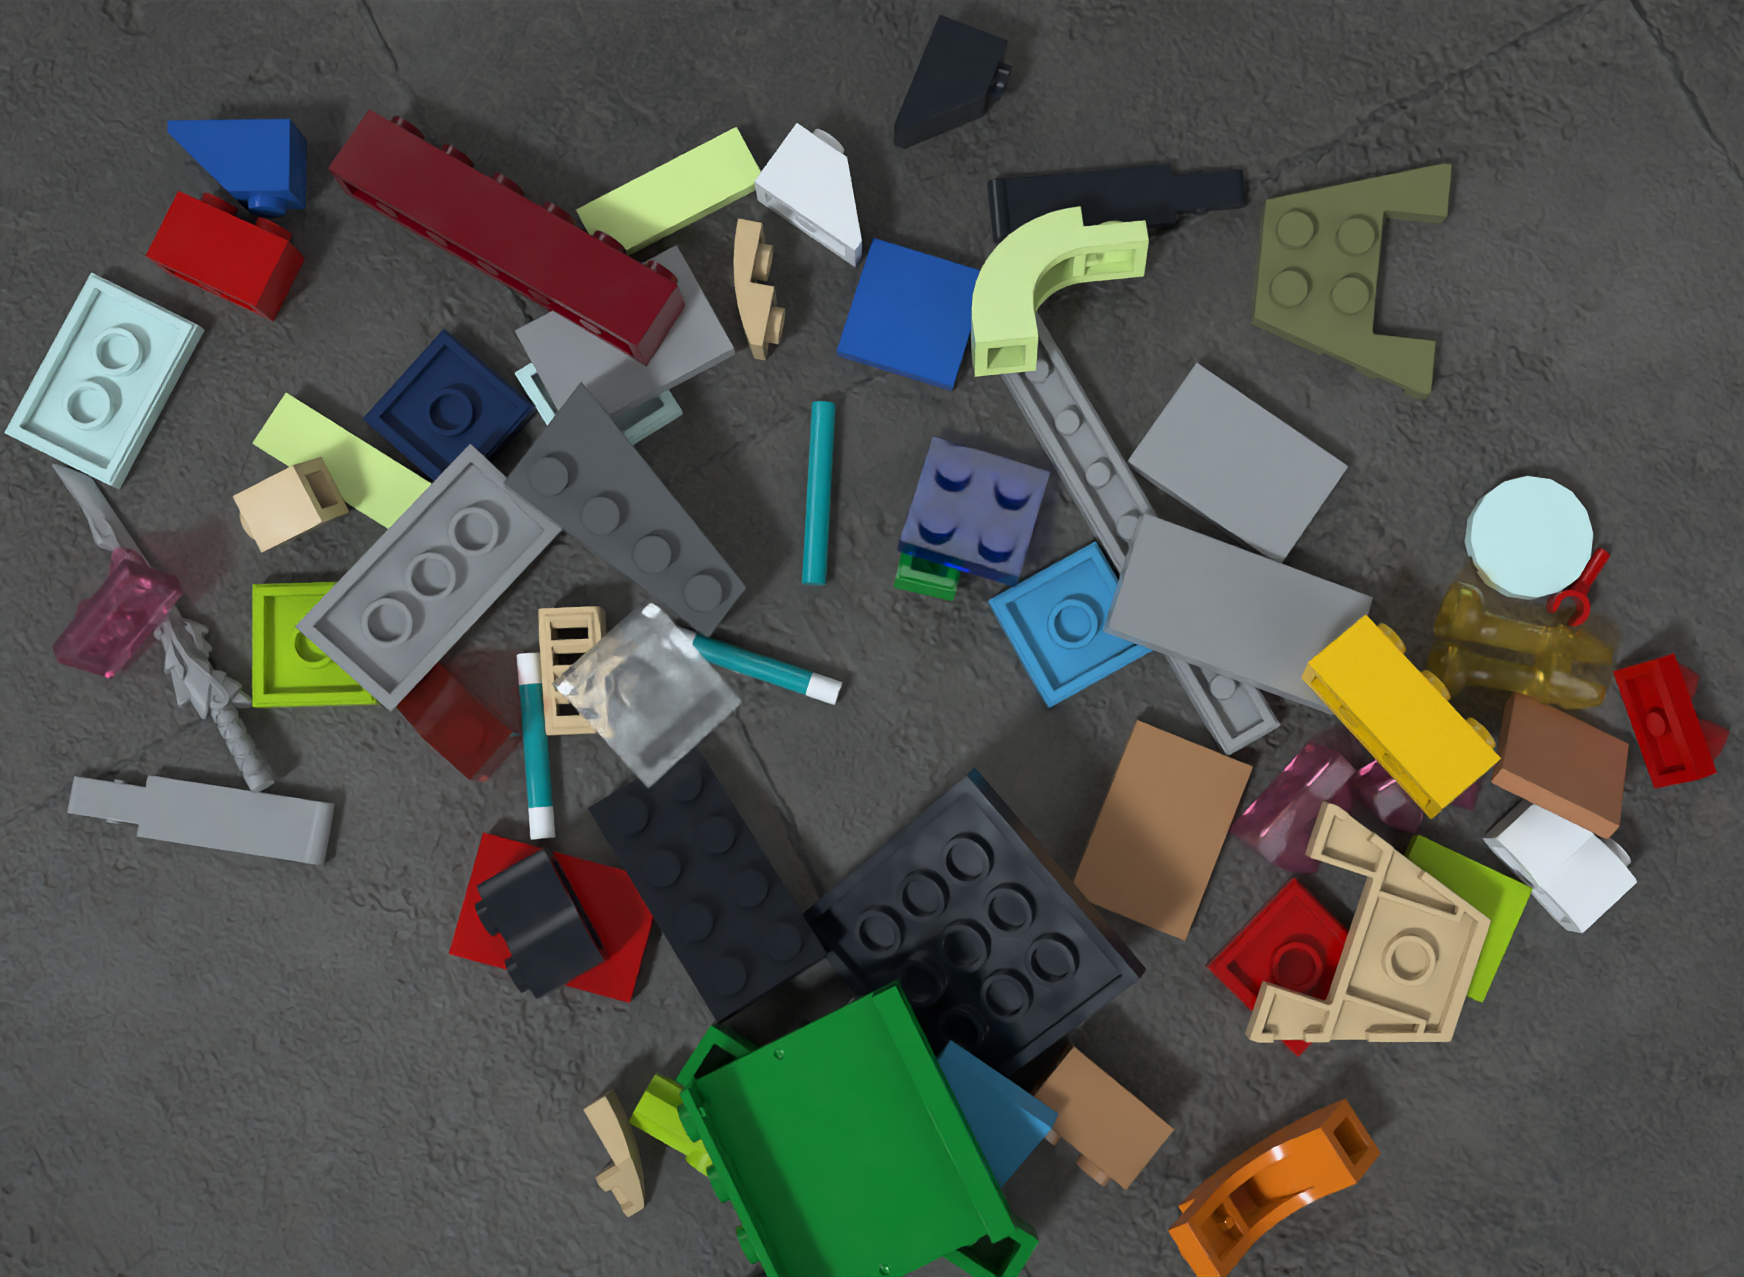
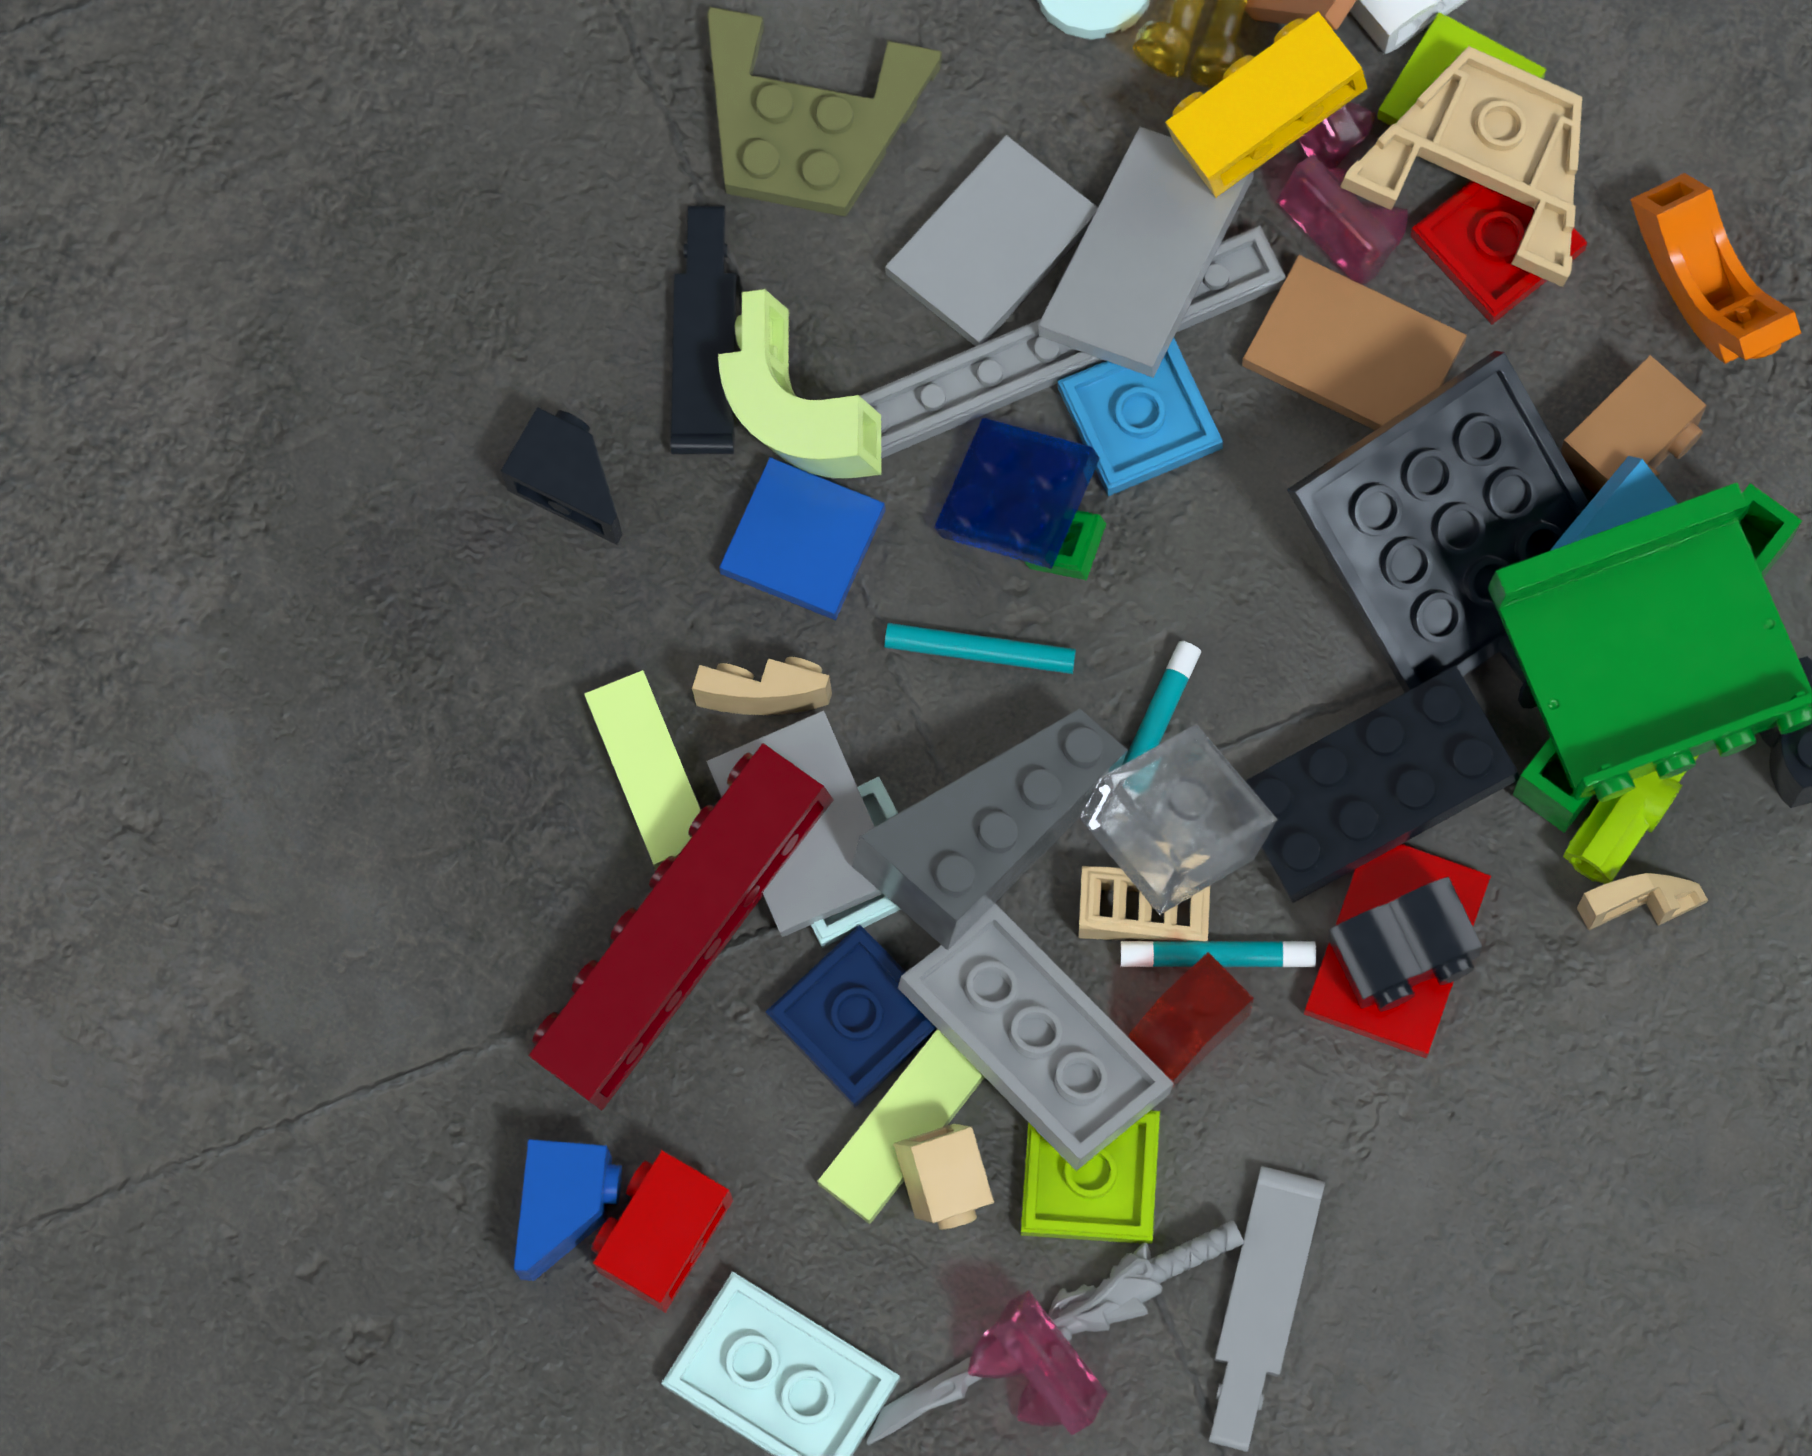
camera: 80 degrees left, 10 degrees down
(813, 190) = (666, 616): white slope -> none

